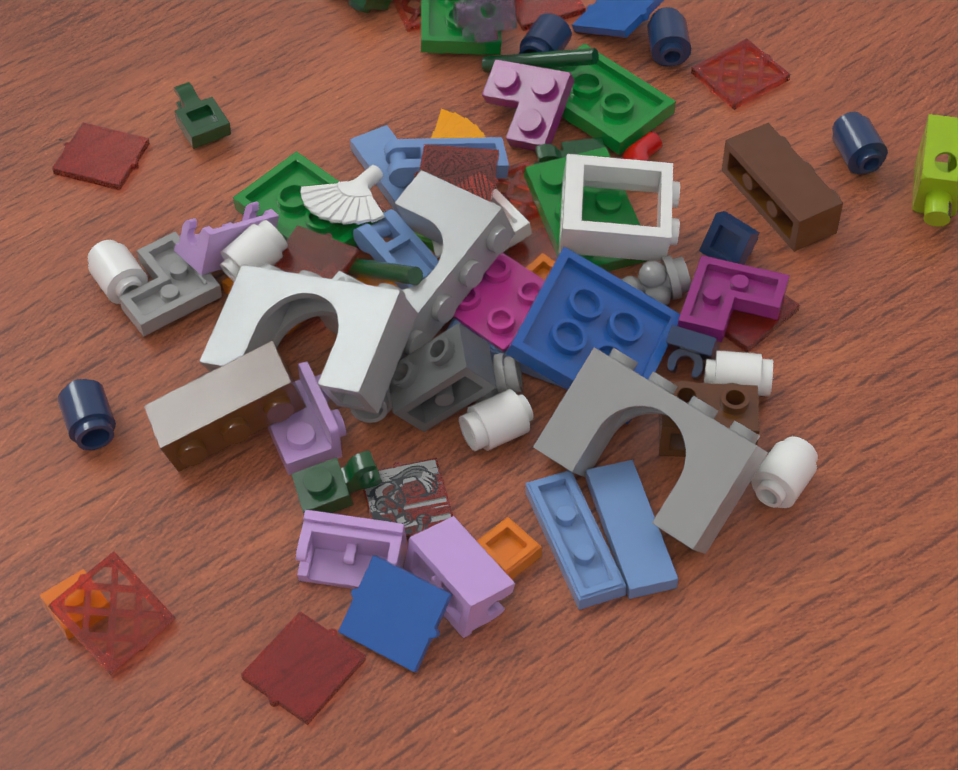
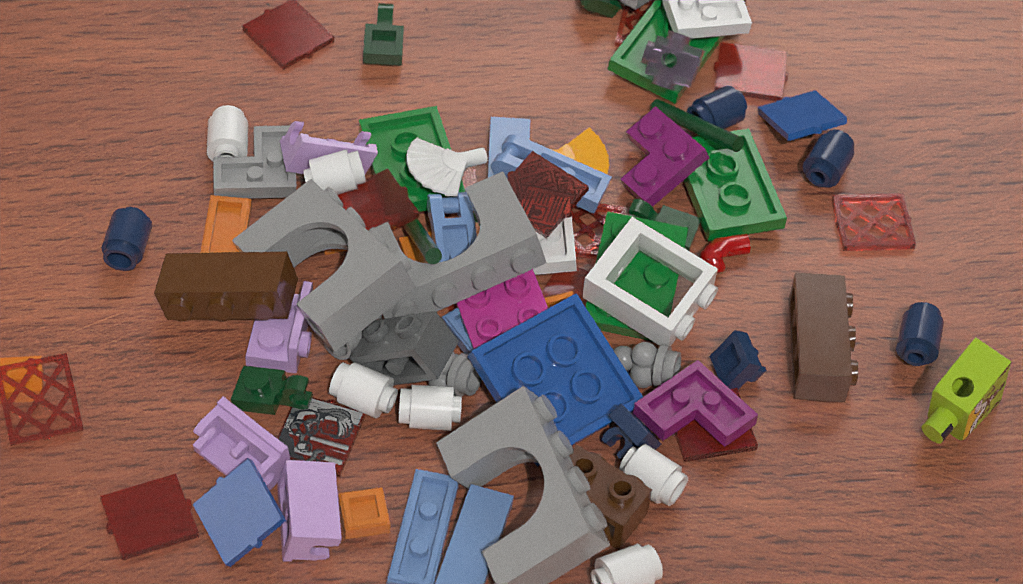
camera: 25 degrees right, 0 degrees up
(173, 354) = (225, 221): none -> orange tile
(424, 436) = (363, 389): none -> white brick

